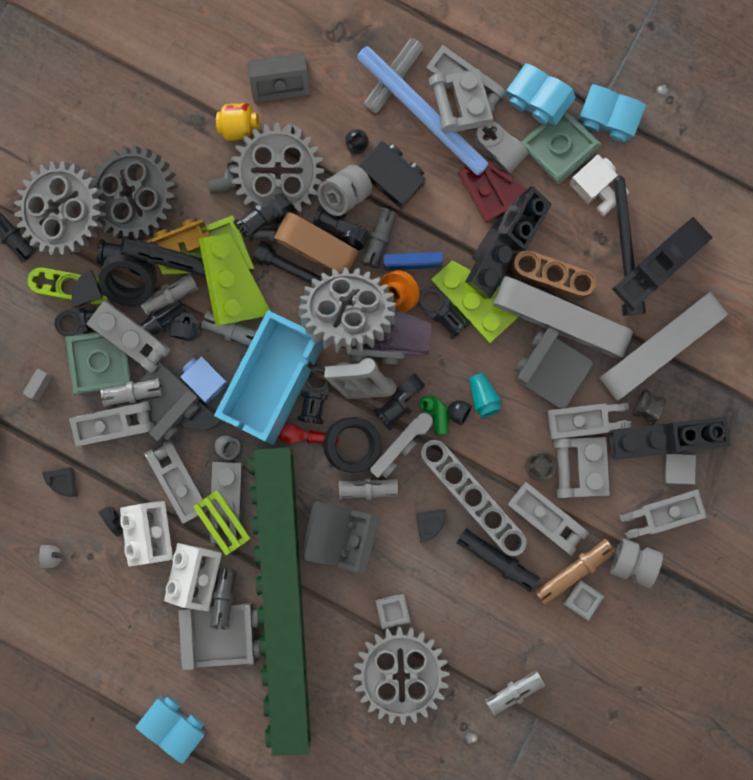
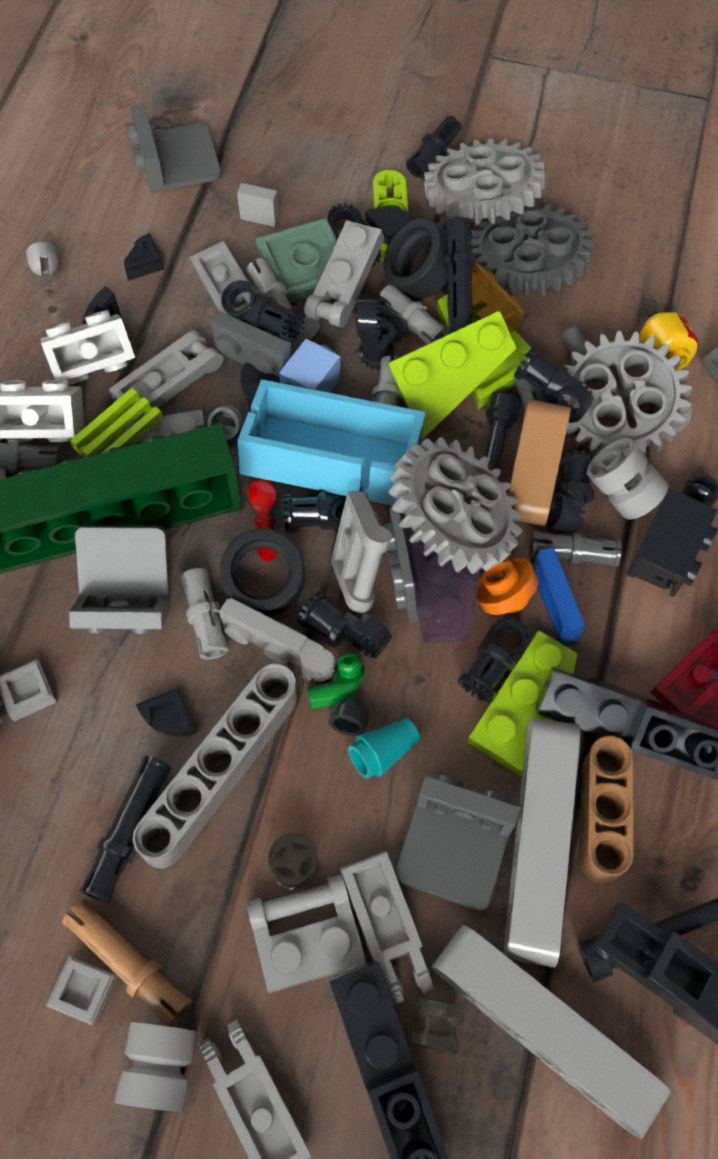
camera: 75 degrees right, 20 degrees down
(157, 402) = (255, 314): none -> black connector
(547, 518) = (208, 894): light grey plate -> none
(679, 469) = (341, 1115): light grey tile -> none

